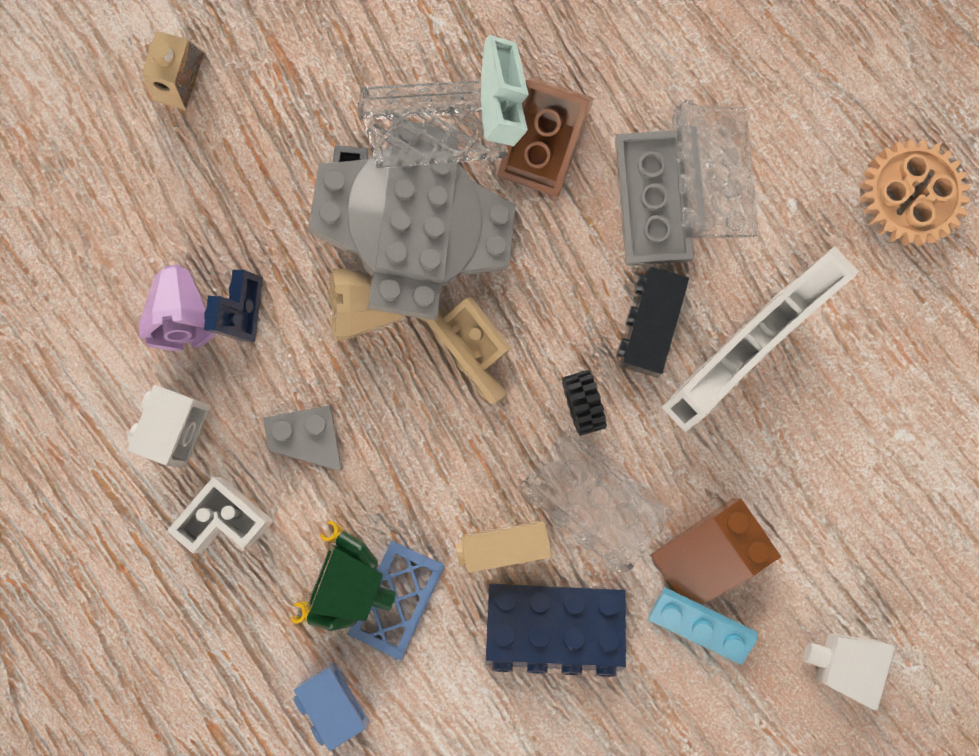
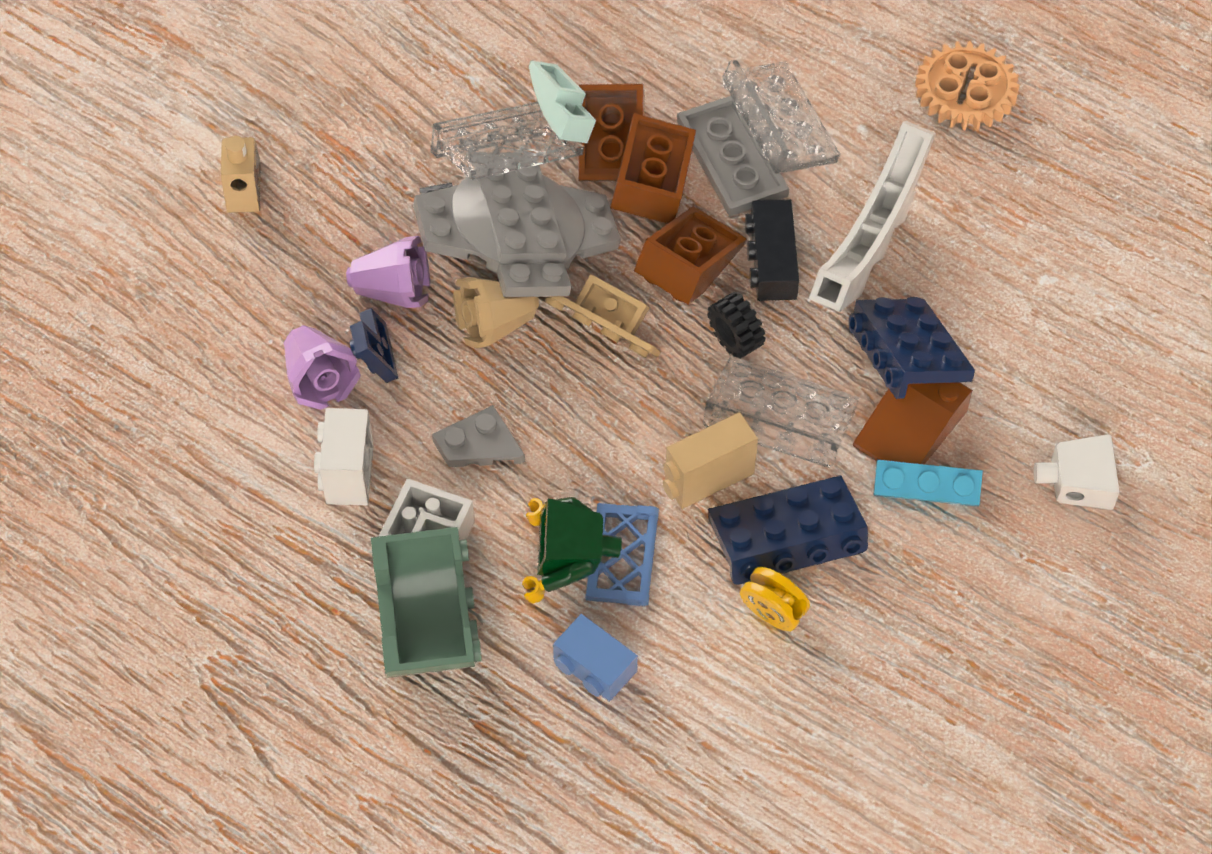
camera: 15 degrees left, 25 degrees down
(186, 625) = (424, 602): none -> sand green cylinder
(279, 233) = (392, 273): none -> lavender cone
(512, 711) = (774, 598): none -> yellow head
(569, 195) = (653, 169): none -> dark orange slope
(571, 299) = (688, 254): none -> dark orange slope
(740, 485) = (907, 343): none -> dark blue bracket

